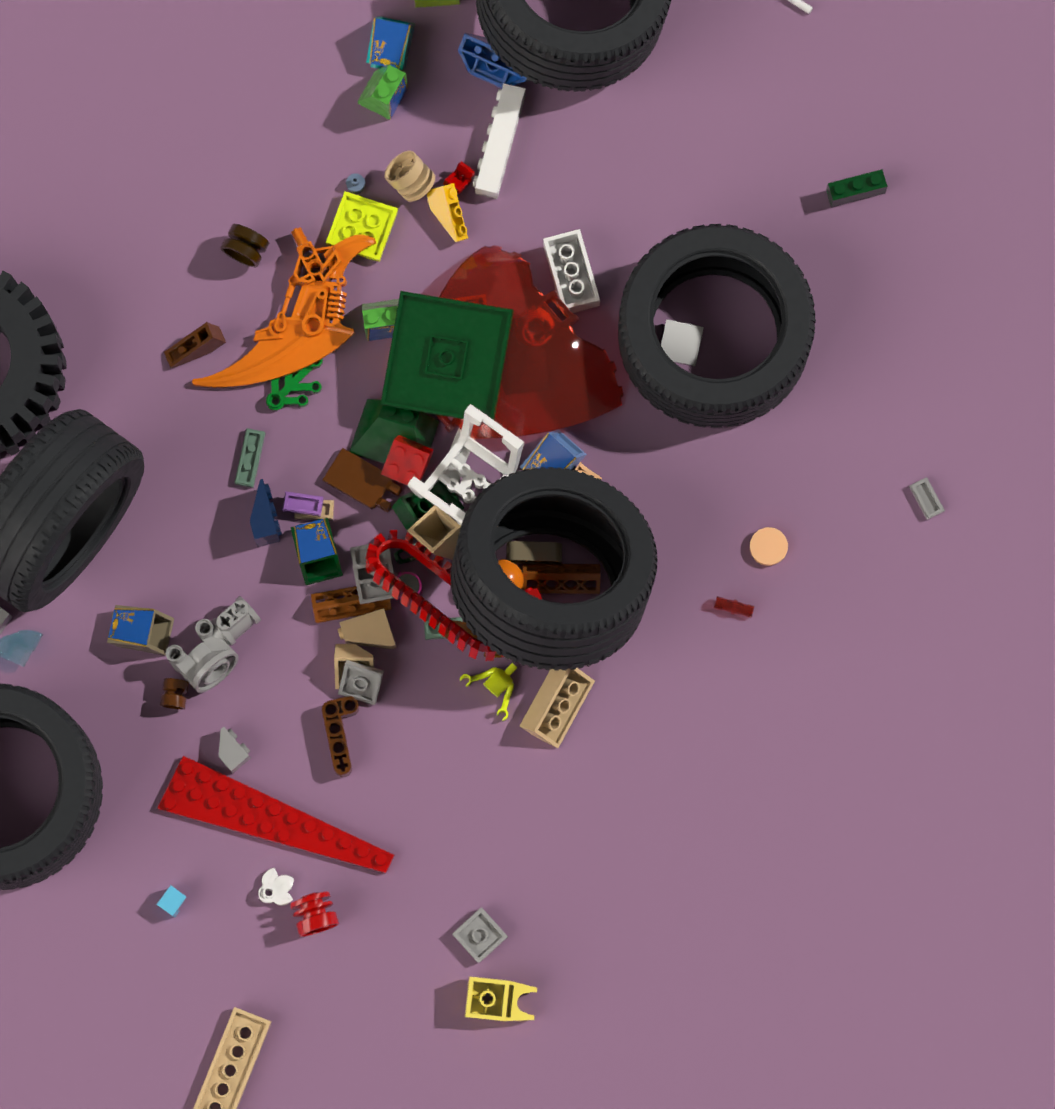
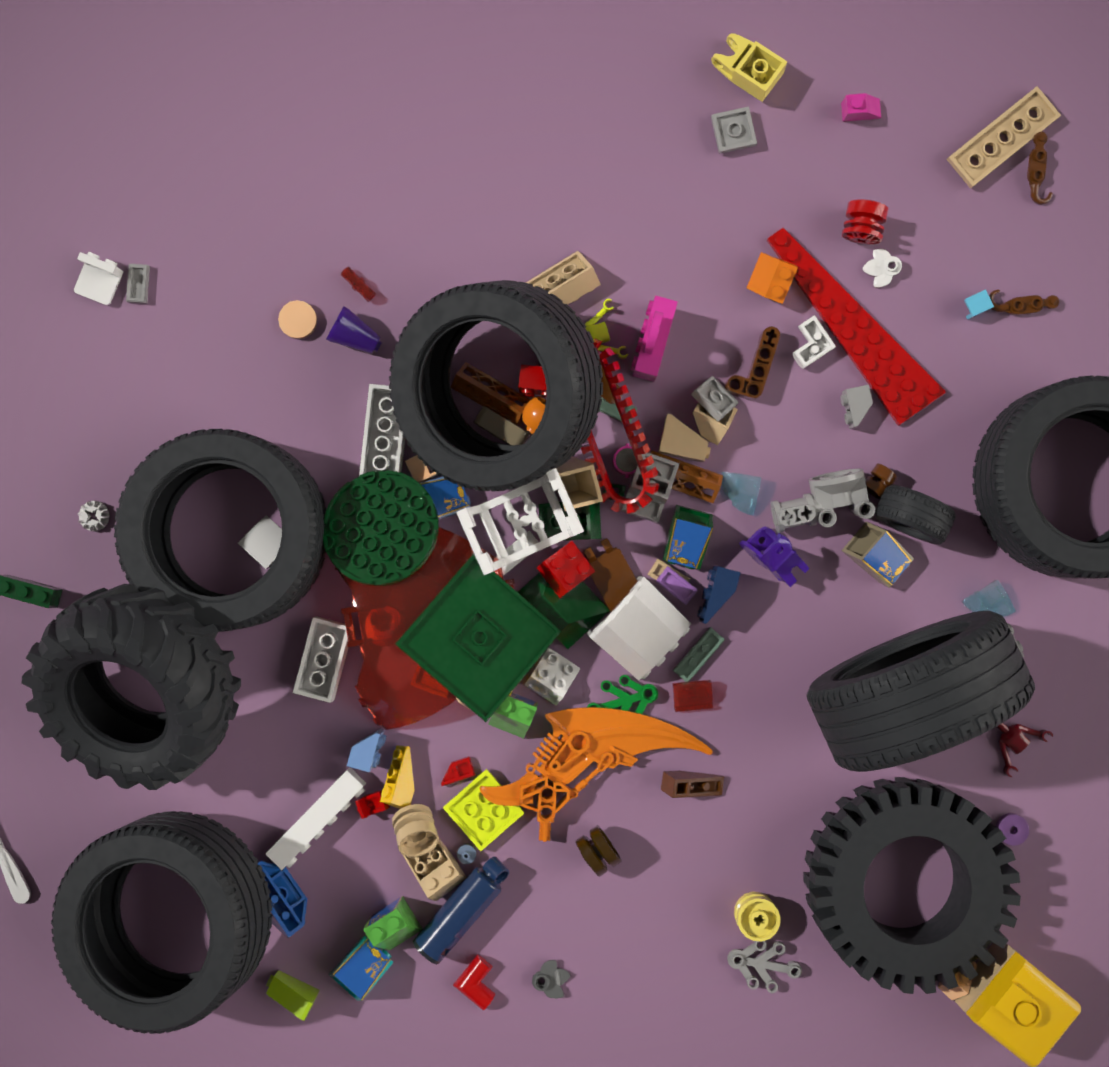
camera: 150 degrees left, 10 degrees up
(52, 232) = (761, 963): none -> light grey plant
(78, 257) = (757, 916): none -> light yellow wheel
(129, 674) = (915, 514): none -> black tyre
(129, 927) = (1024, 304): none -> reddish brown piece
(184, 1059) = (1037, 168): none -> reddish brown piece
(222, 123) = (553, 977): none -> dark grey plate
(233, 574) = (774, 554): none -> dark purple piece
(236, 420) = (692, 695): none -> clear red plate
(291, 82) = (470, 982): none -> red brick
(292, 619) = (741, 490): none -> clear light blue brick
(296, 785) = (818, 343): none -> white brick
(311, 446) = (641, 629): none -> white windscreen
(333, 134) = (461, 911): none -> dark blue piece
(366, 368) = (552, 676): none -> white bracket
(369, 818) = (772, 277): none -> orange slope
(372, 154) = (436, 871): none -> tan slope
(374, 1022) = (860, 107): none -> dark pink slope
(402, 246) = (458, 771): none -> red tile
(445, 708) = (655, 337): none -> dark pink brick
(490, 216) = (365, 753): none -> medium blue slope
(584, 402) = (380, 528): none -> dark green tile
(625, 471) = (382, 439): none -> white brick
(706, 196) = (101, 725): none -> black tyre
(711, 559) = (353, 333): none -> dark purple cone
(835, 287) = (101, 513): none -> white gear
(962, 481) = (97, 278): none -> white bracket

